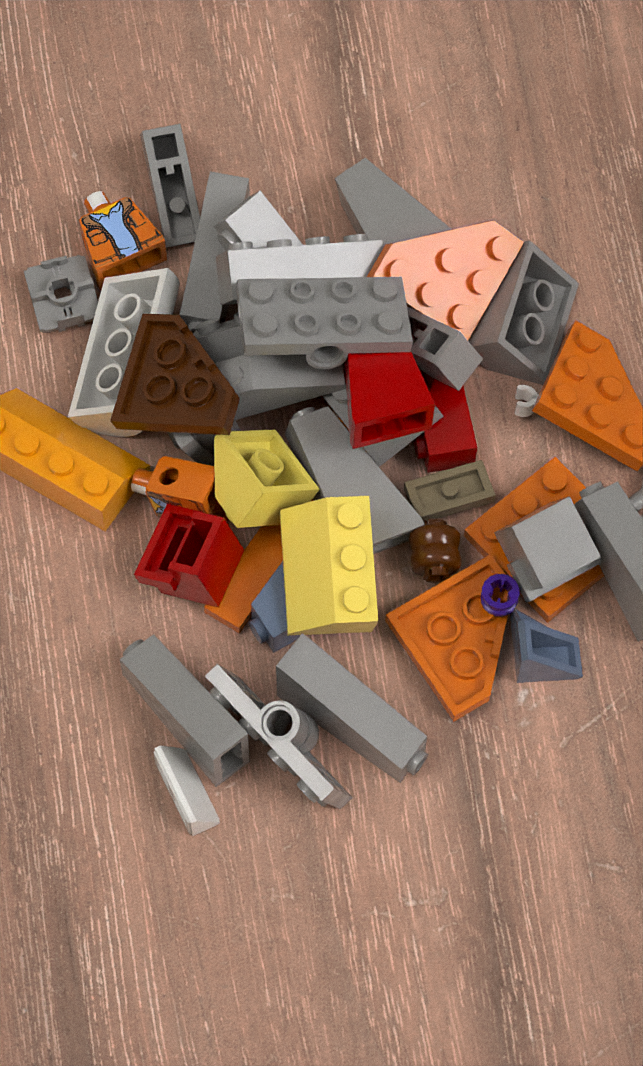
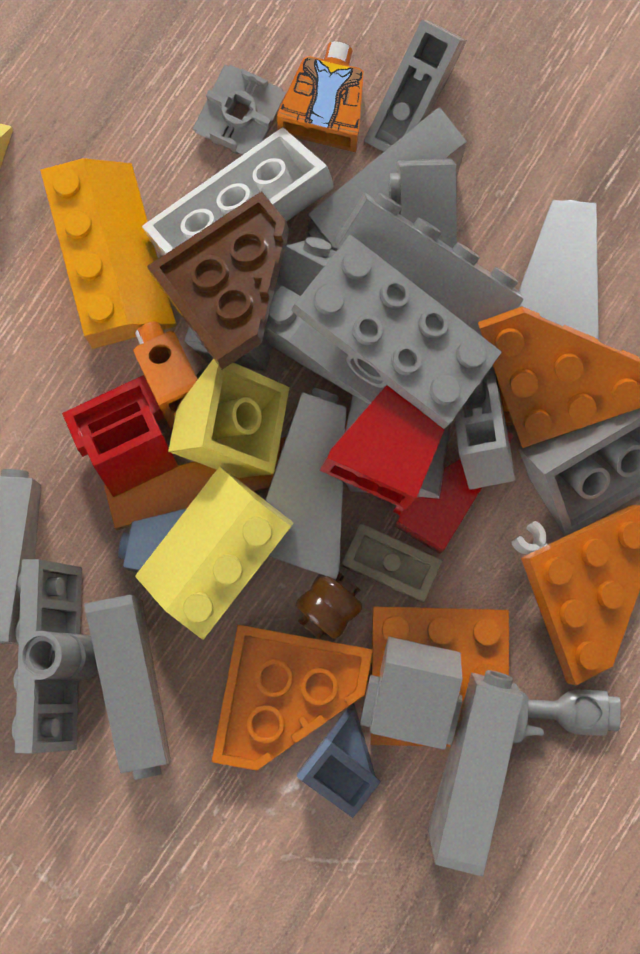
camera: 40 degrees right, 15 degrees up
(503, 582) = (333, 683): dark purple bush -> none

